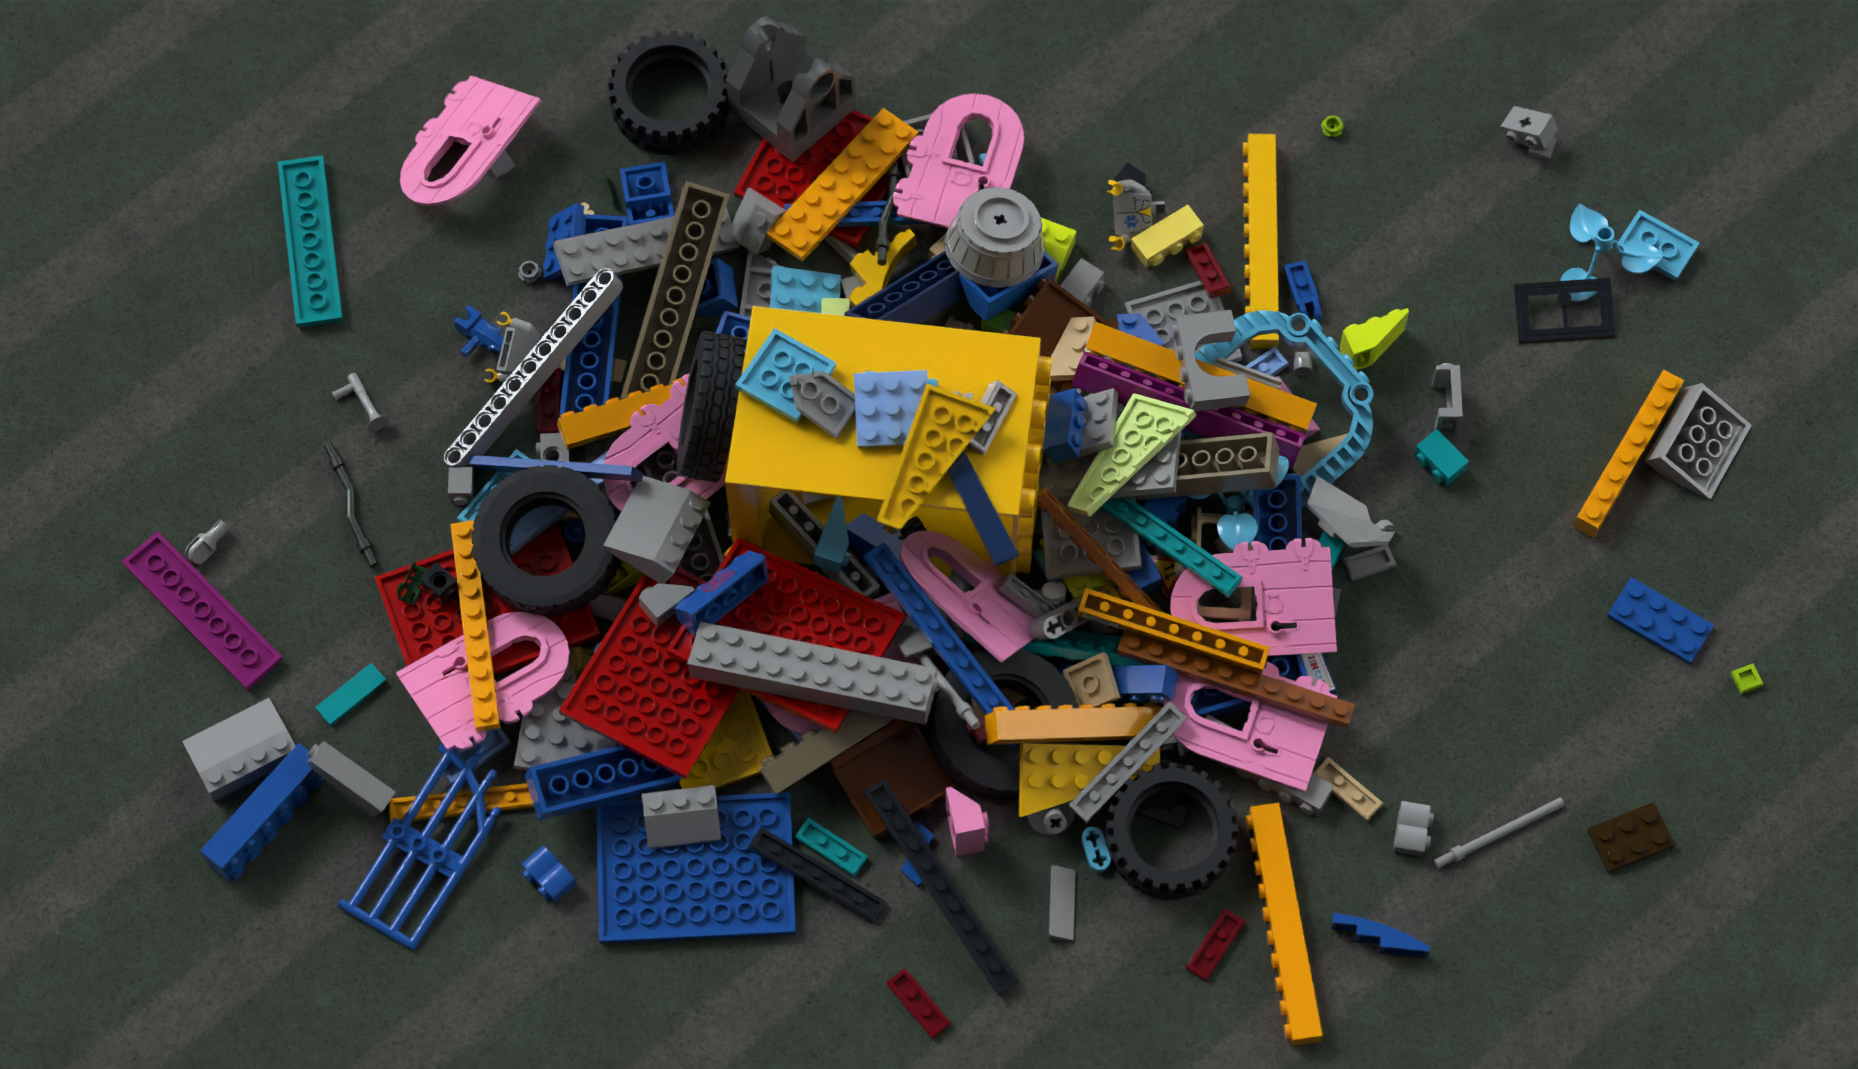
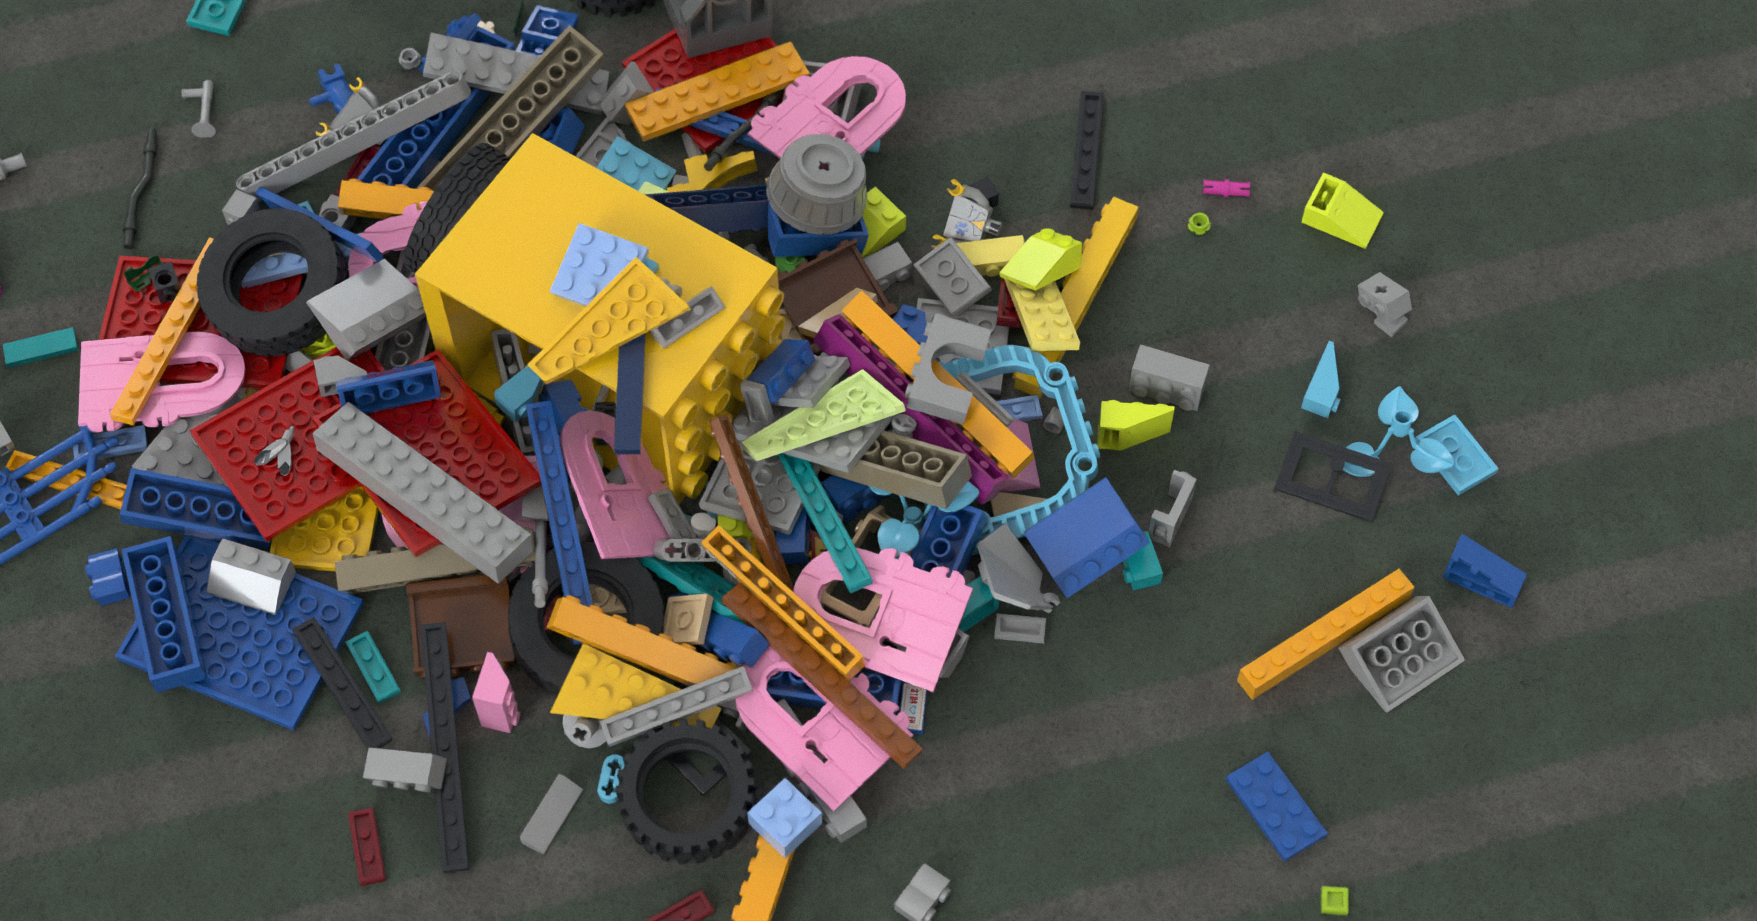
camera: 25 degrees right, 5 degrees down
(627, 884) = (163, 614): none -> blue brick
(649, 690) = (282, 449): none -> light grey piece
(770, 371) = (522, 203): medium azure plate -> none
(823, 400) = (539, 237): light grey tile -> none
(919, 922) = (404, 769): none -> light grey brick
(1060, 464) = (757, 402): none -> light grey tile
(1147, 270) = (952, 277): none -> light grey tile
(1194, 430) = (903, 425): none -> light grey wheel
(1196, 98) = (1086, 150): none -> black tile
(1222, 221) = (1043, 260): none -> neon yellow slope
(1244, 267) = (1044, 317): none -> light yellow plate
(1269, 815) = (785, 818): none -> light blue brick
(1302, 288) = (1091, 354): blue hinge -> none
(1339, 82) = (1226, 188): none -> dark pink pin
(1349, 789) = (882, 830): tan tile -> none
(1383, 283) = (1168, 378): none -> light grey brick
(1393, 458) = (1086, 537): none -> blue slope
(1451, 62) = (1341, 211): none -> neon yellow slope
(1517, 231) = (1324, 386): none -> medium azure slope
(1732, 341) = (1484, 572): none -> blue wedge

